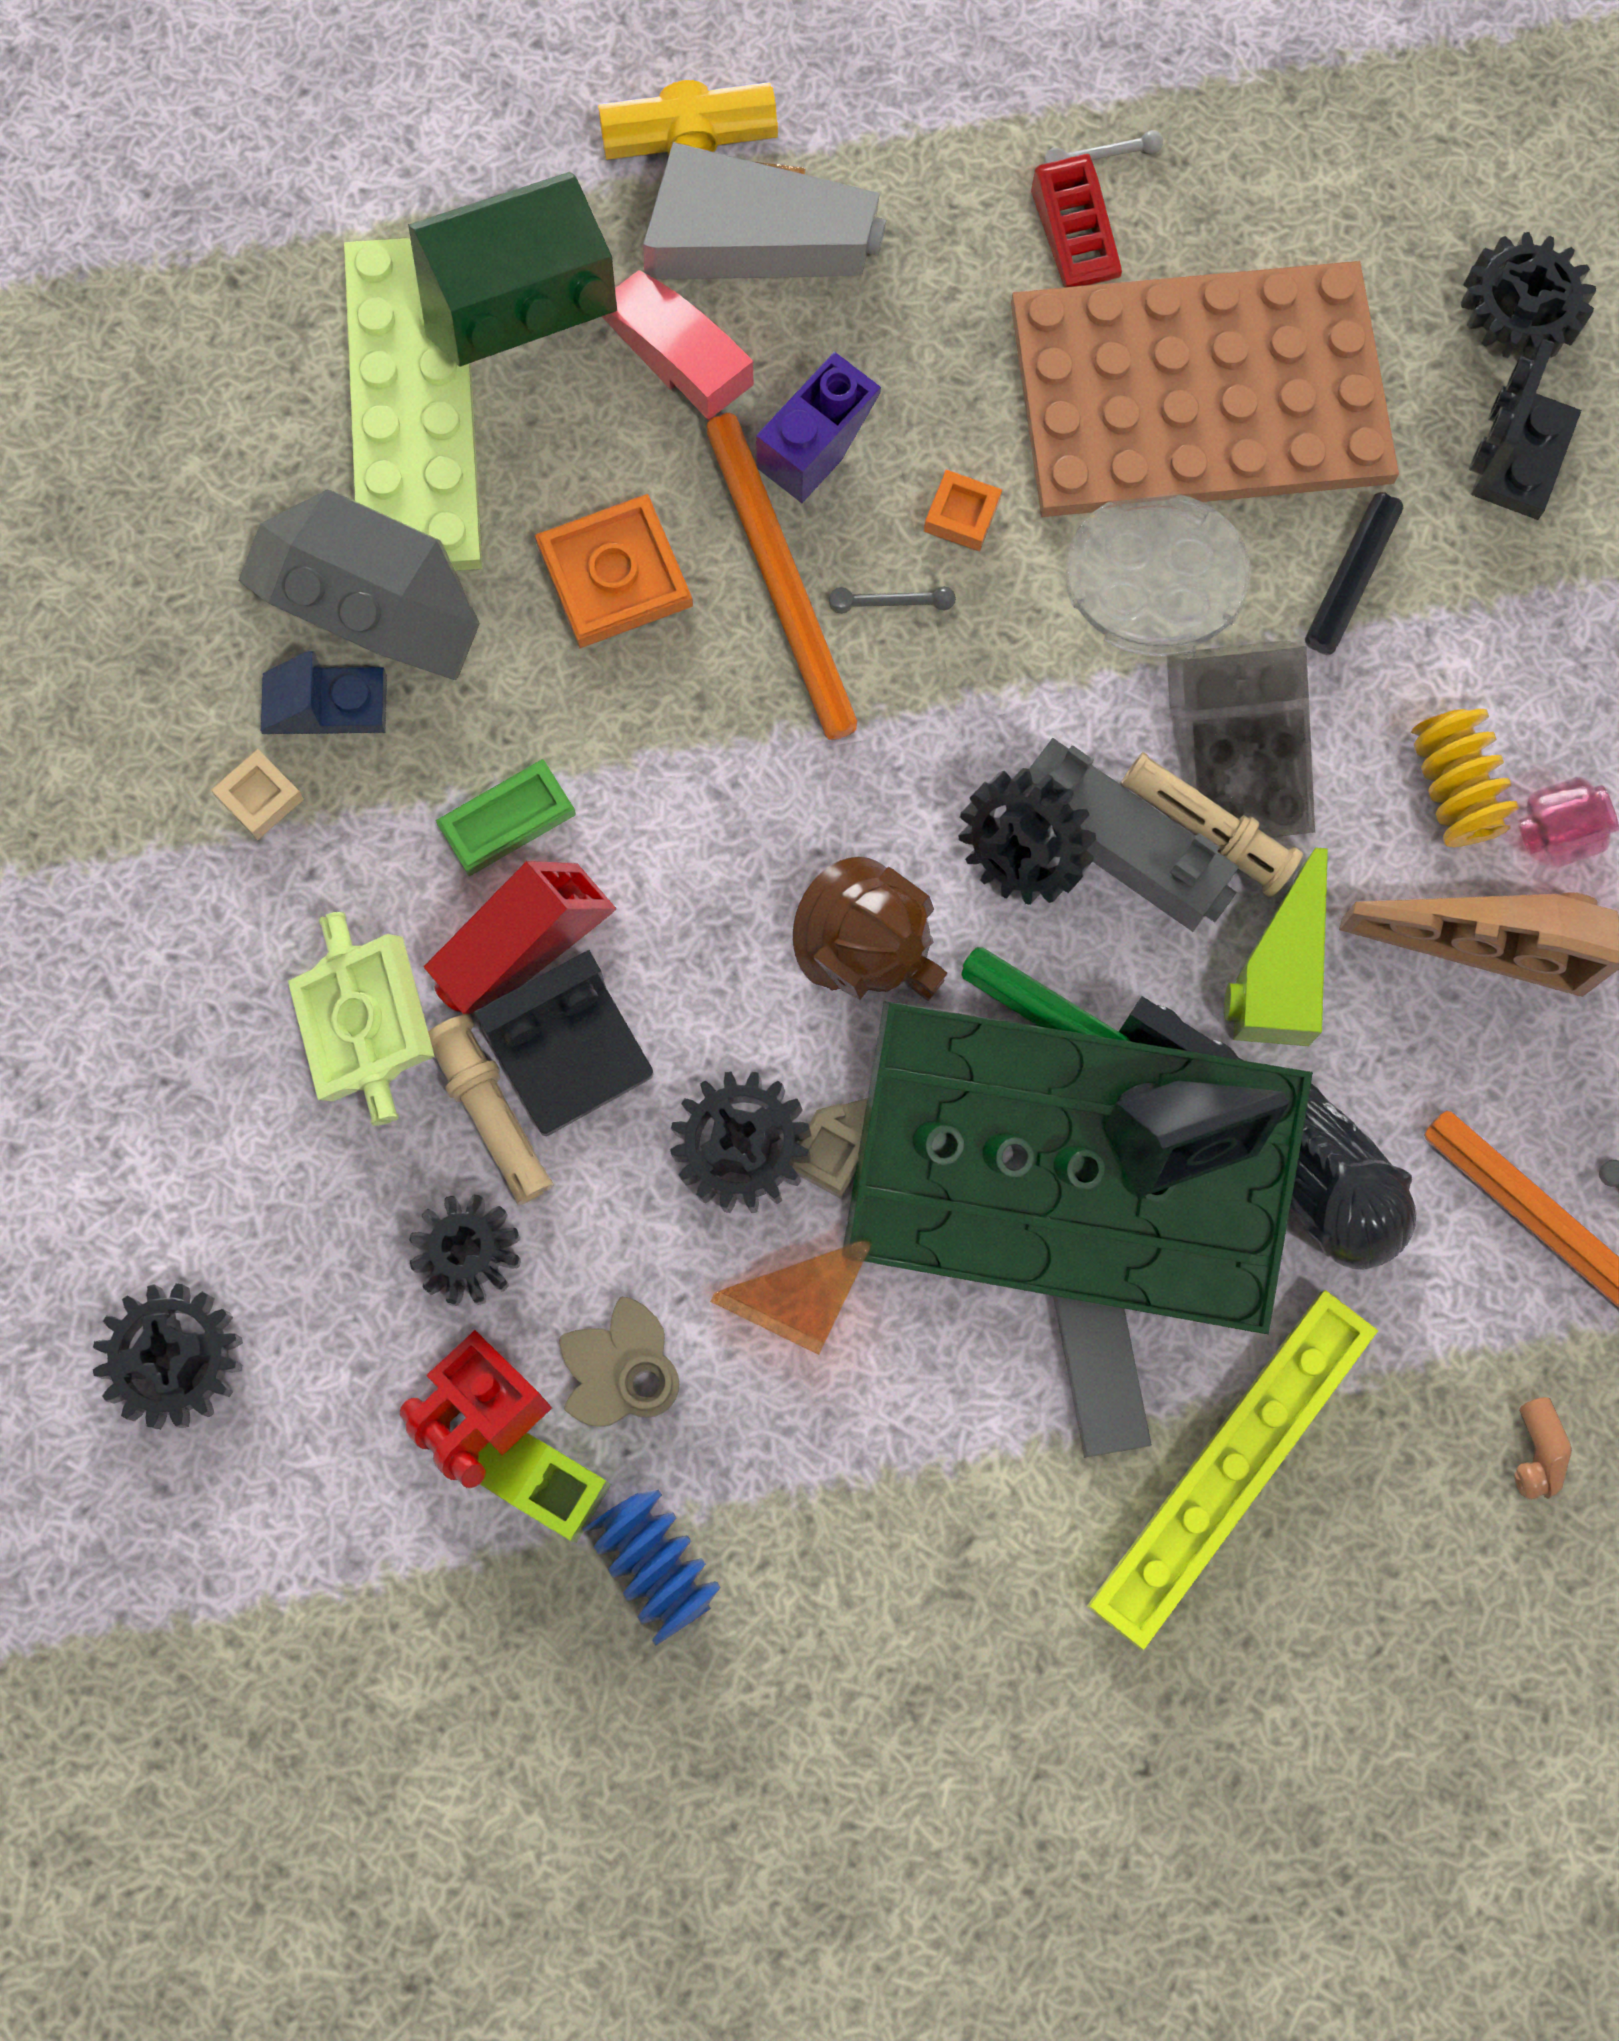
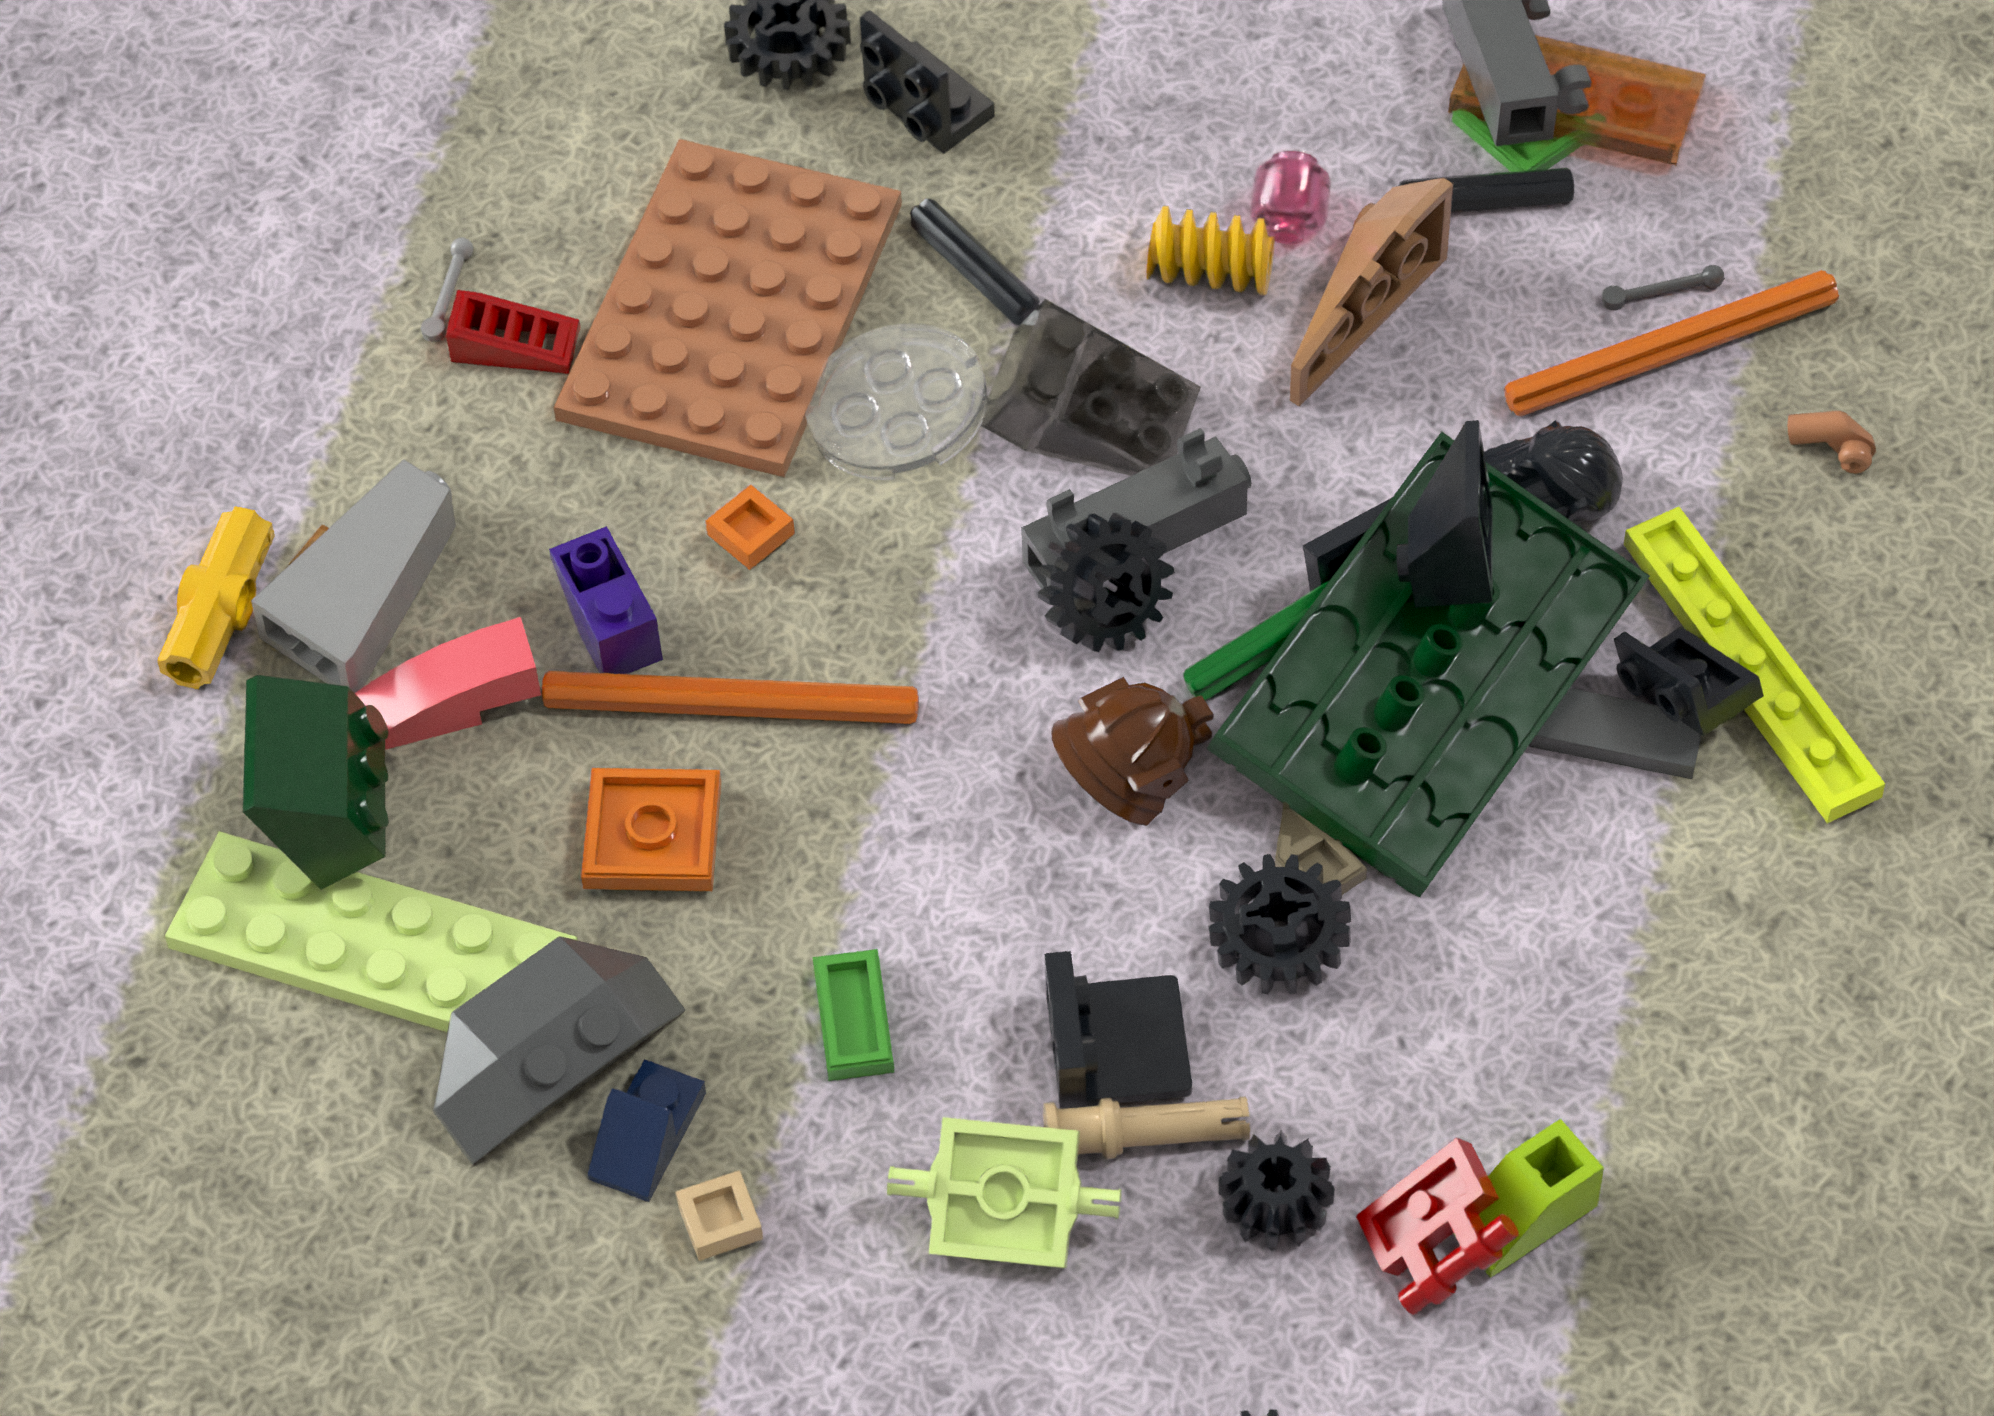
camera: 60 degrees left, 20 degrees down
(517, 934) = (989, 1032): red slope -> none
(611, 1362) = (1437, 1110): dark tan plate -> none
(653, 1563) = (1652, 1130): blue piece -> none
(799, 1299) = (1448, 935): clear orange tile -> none
(842, 600) = (781, 660): dark grey hinge -> none
(1174, 1417) = (1687, 679): none -> black bracket
(1237, 838) = (1102, 469): tan pin -> none
(1283, 979) = (1320, 449): lime slope -> none

